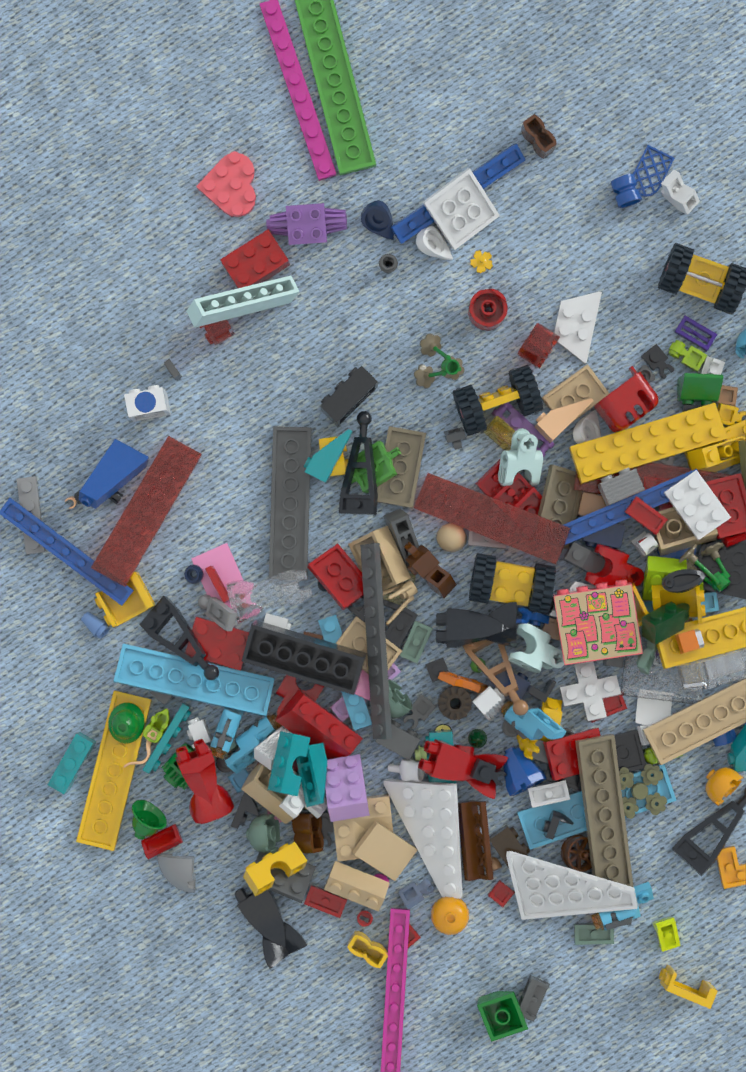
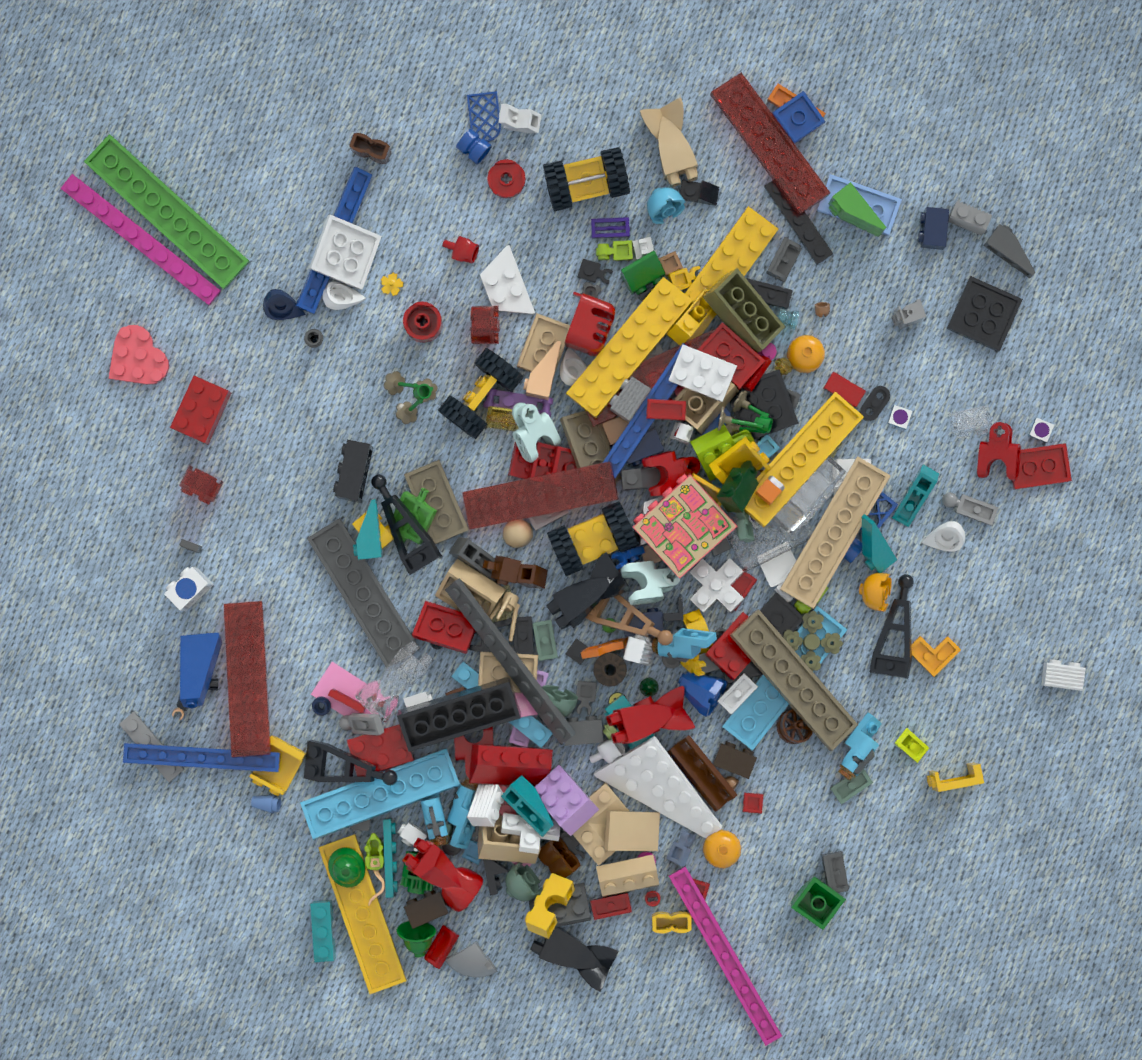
camera: 30 degrees left, 0 degrees up
(168, 802) = (425, 909): none -> dark brown brick
(242, 301) = (212, 450): light aqua brick -> none
(282, 775) = (495, 798): teal arch -> none
(307, 223) = (223, 348): medium lavender plate -> none
(455, 436) = (465, 446): dark grey tile -> none
(486, 771) = (672, 710): black plate -> none
(550, 826) = (756, 719): black plate -> none
(556, 891) = (795, 770): white wing -> none
(561, 271) = (463, 250): none -> red piece
(645, 231) = (513, 170): none -> red plate
(682, 580) = (730, 444): black arm -> none

